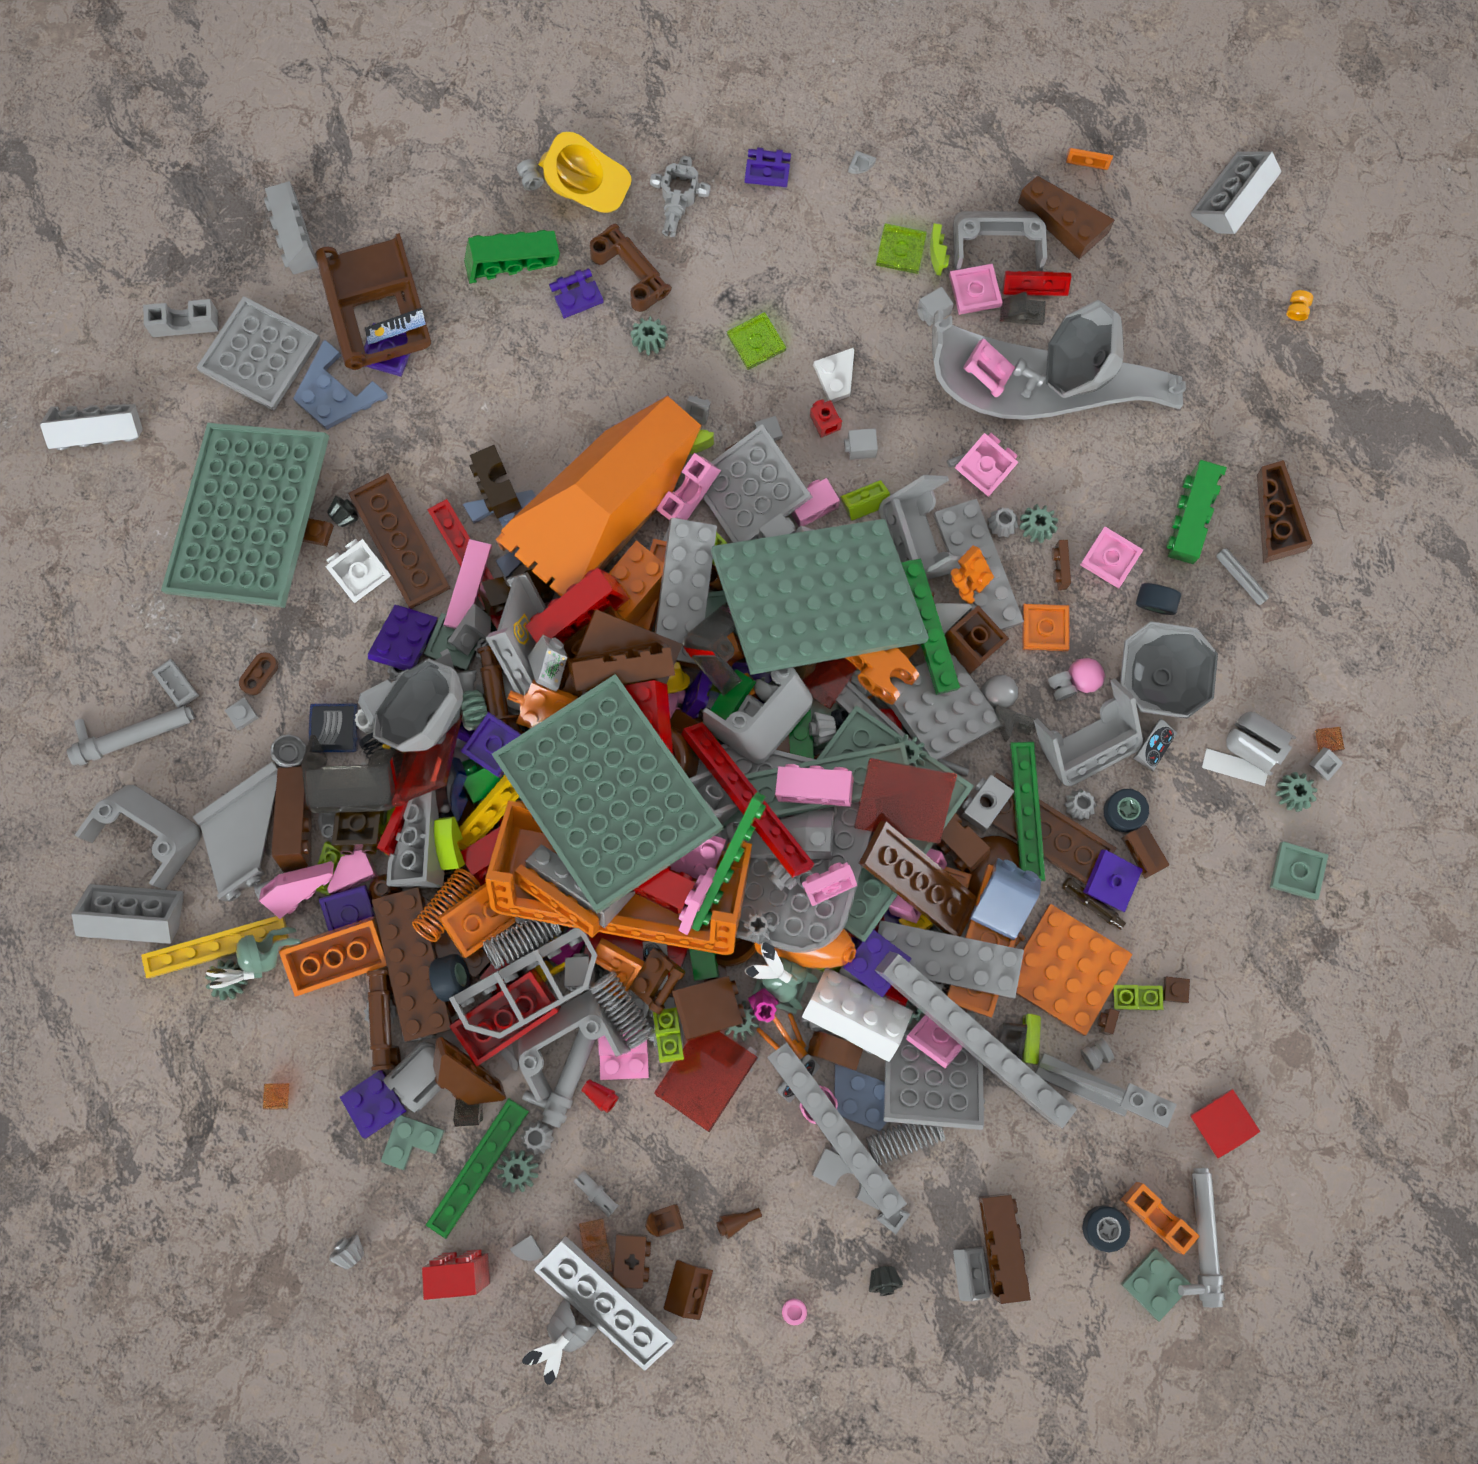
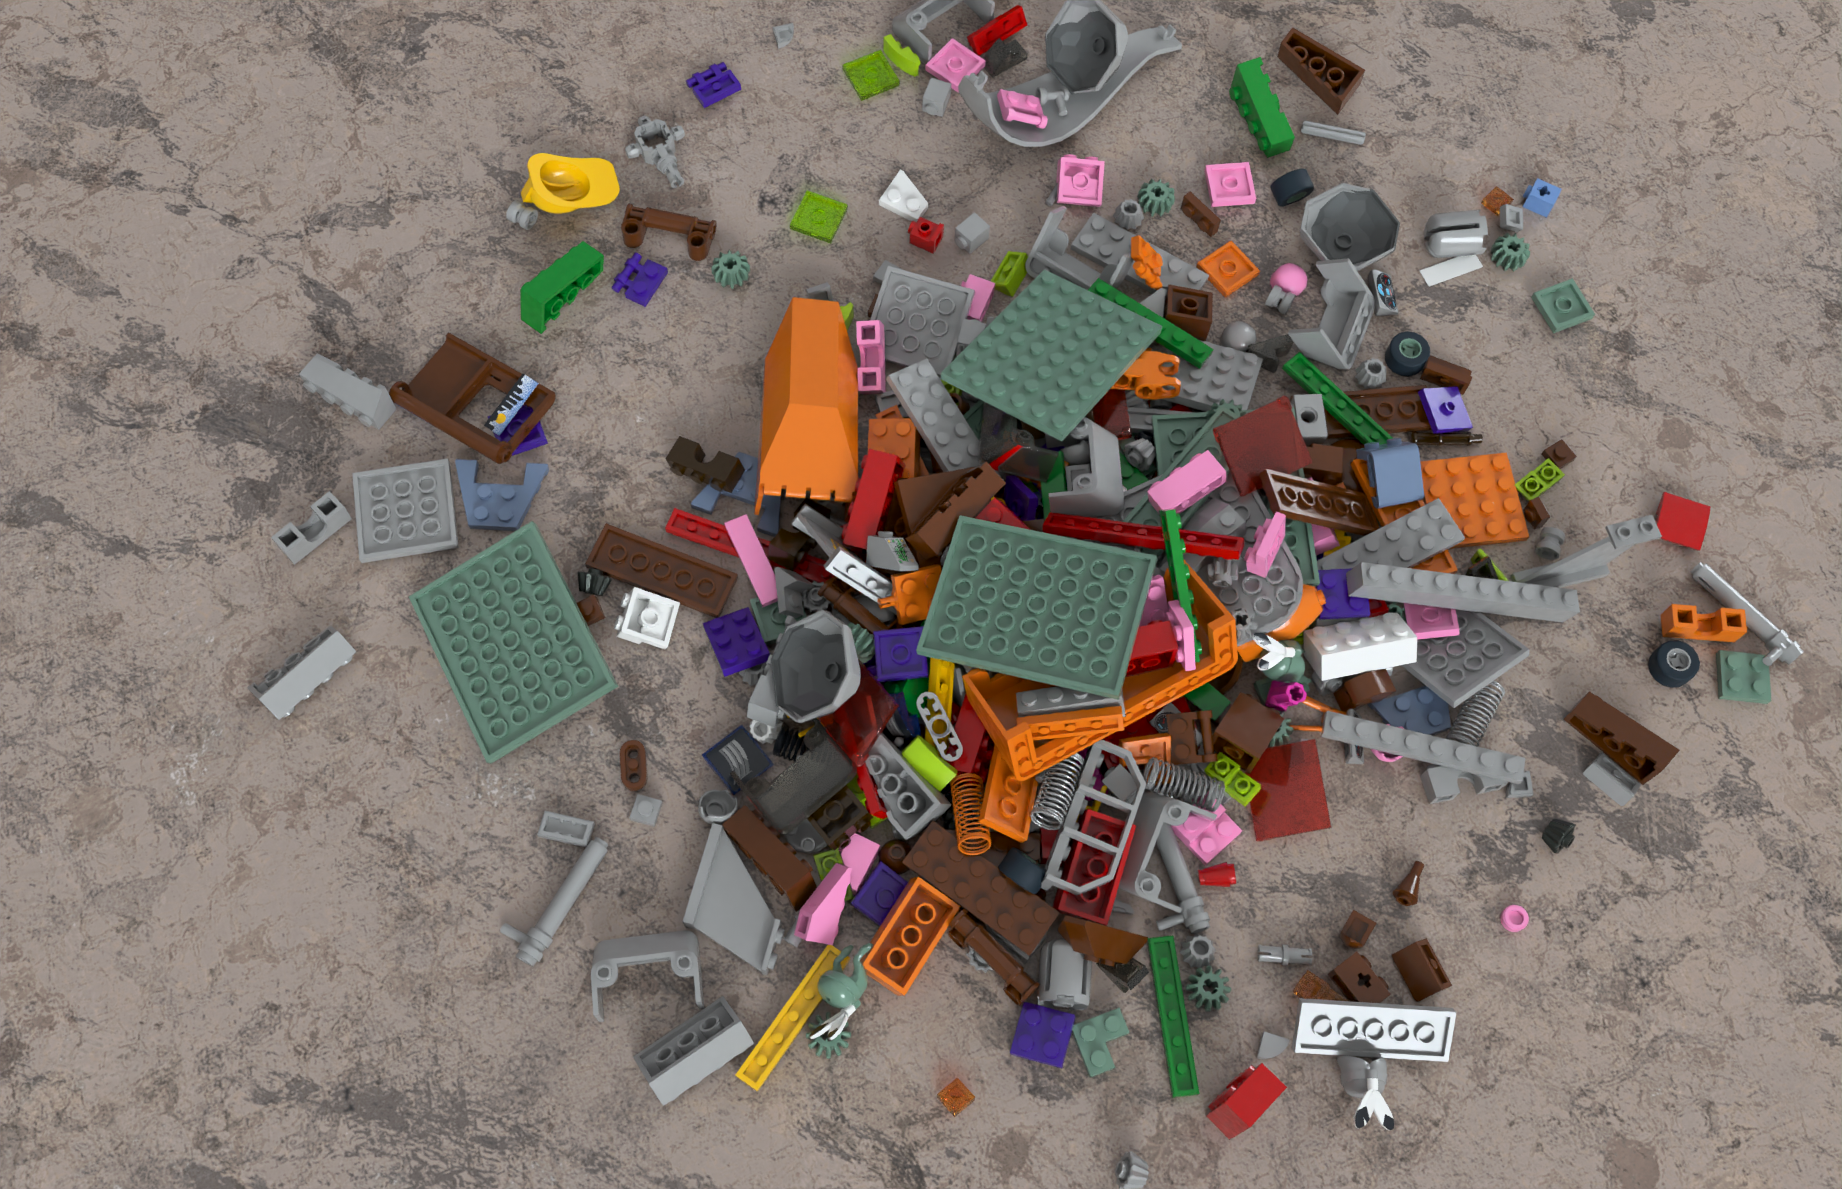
camera: 40 degrees left, 10 degrees down
(479, 840) = (925, 712): none -> light grey beam
(1375, 771) = (1541, 197): none -> medium blue brick

